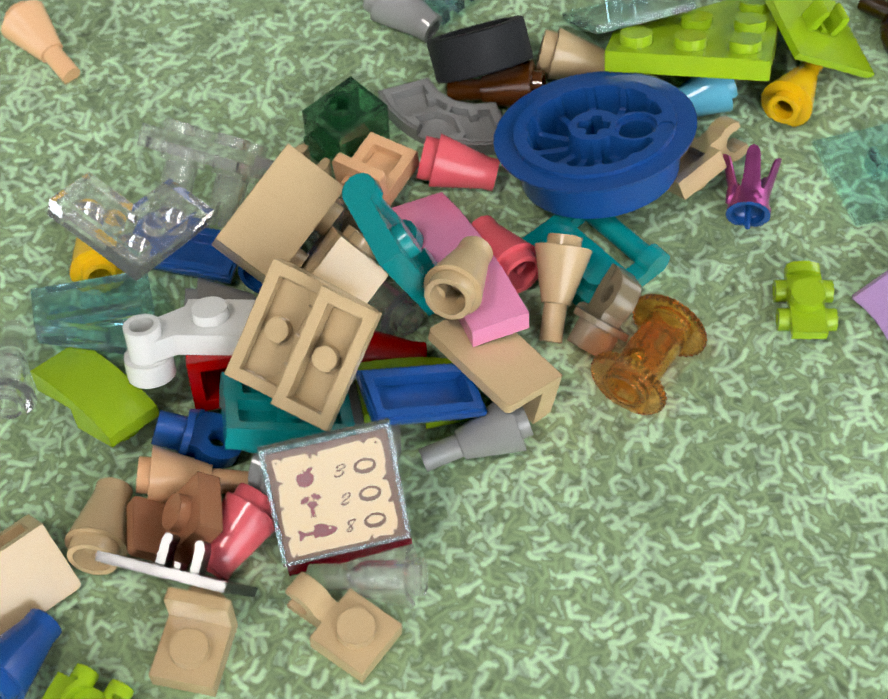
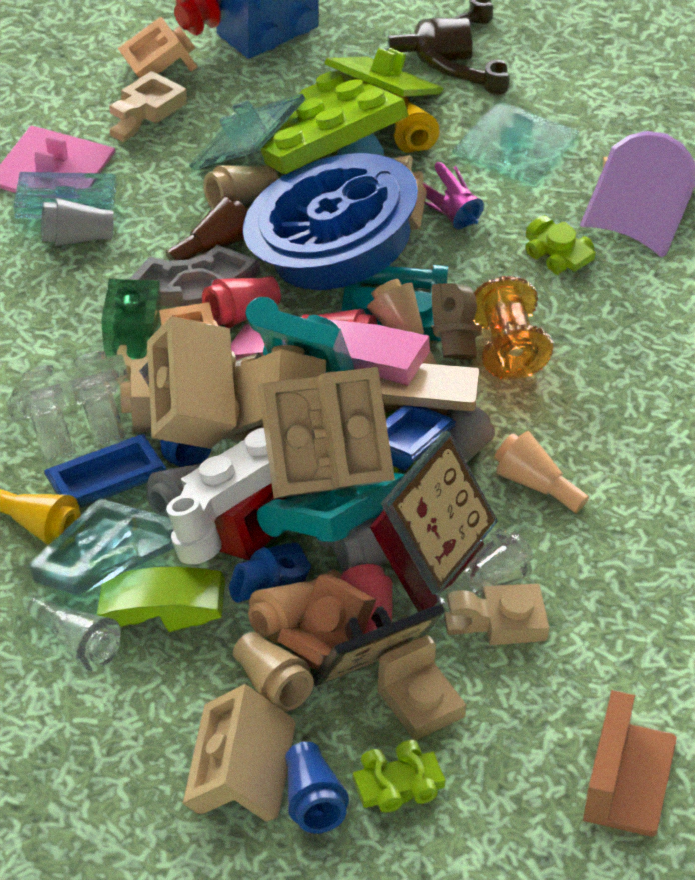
camera: 45 degrees left, 10 degrees down
(126, 233) = (79, 466): clear plate -> none
(458, 280) = (369, 339): tan cone -> none
(480, 49) = (180, 209): black tyre -> none
(523, 500) = (528, 464): none -> light nougat cone

